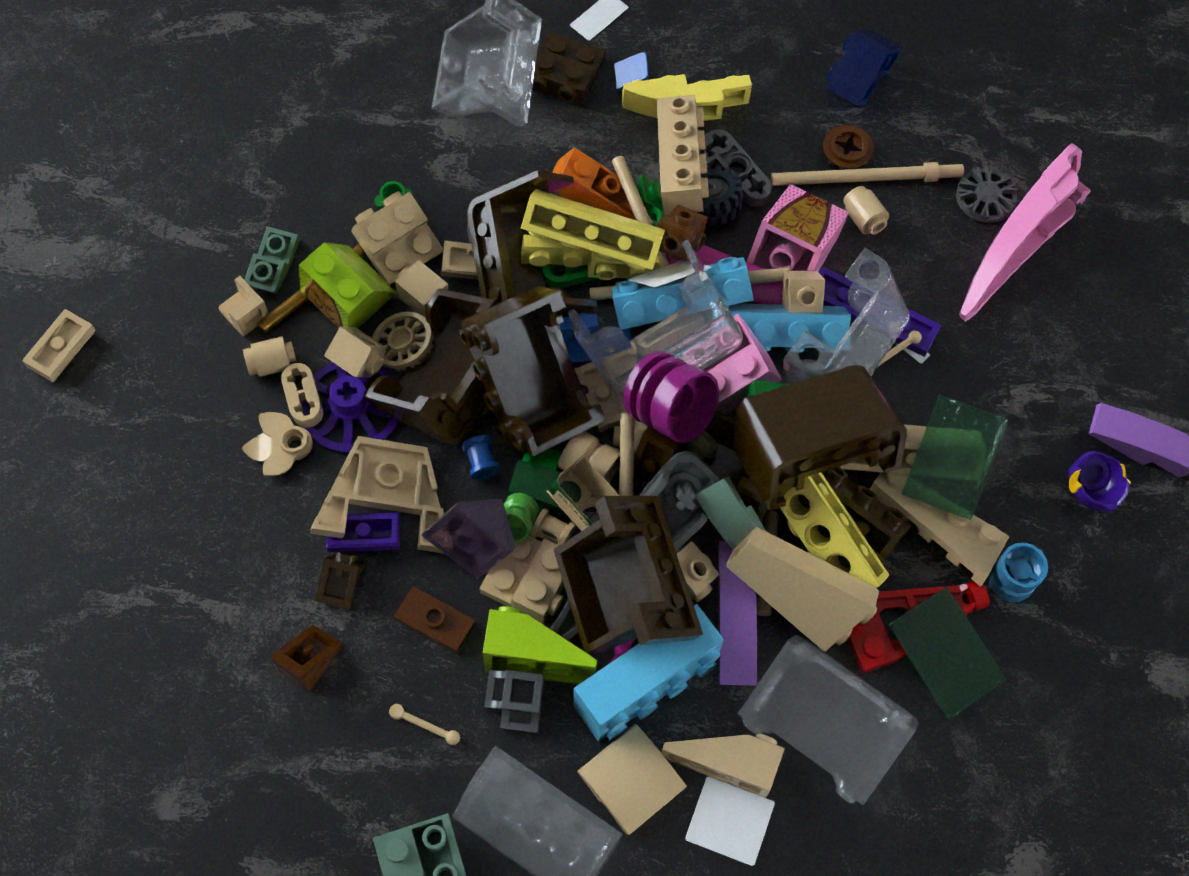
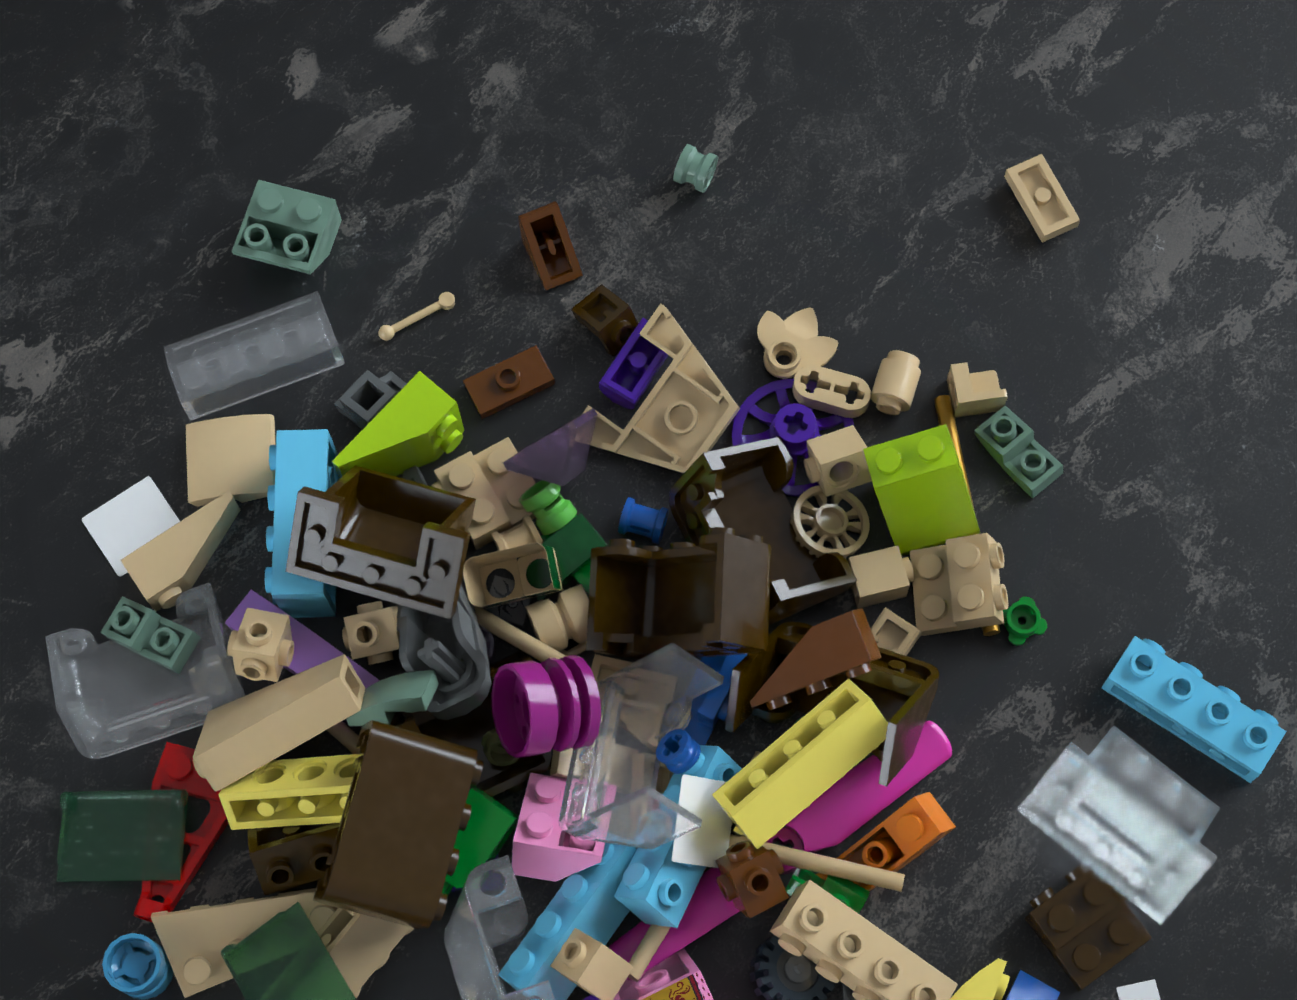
camera: 130 degrees right, 5 degrees up
(173, 592) = (695, 168): none -> sand green wheel
(389, 76) = (1194, 709): none -> medium azure brick
(509, 264) = (825, 651): none -> reddish brown slope
(640, 327) = (678, 751): none -> blue bush
(749, 625) = (261, 645): none -> tan brick
(801, 738) = (150, 635): none -> sand green slope

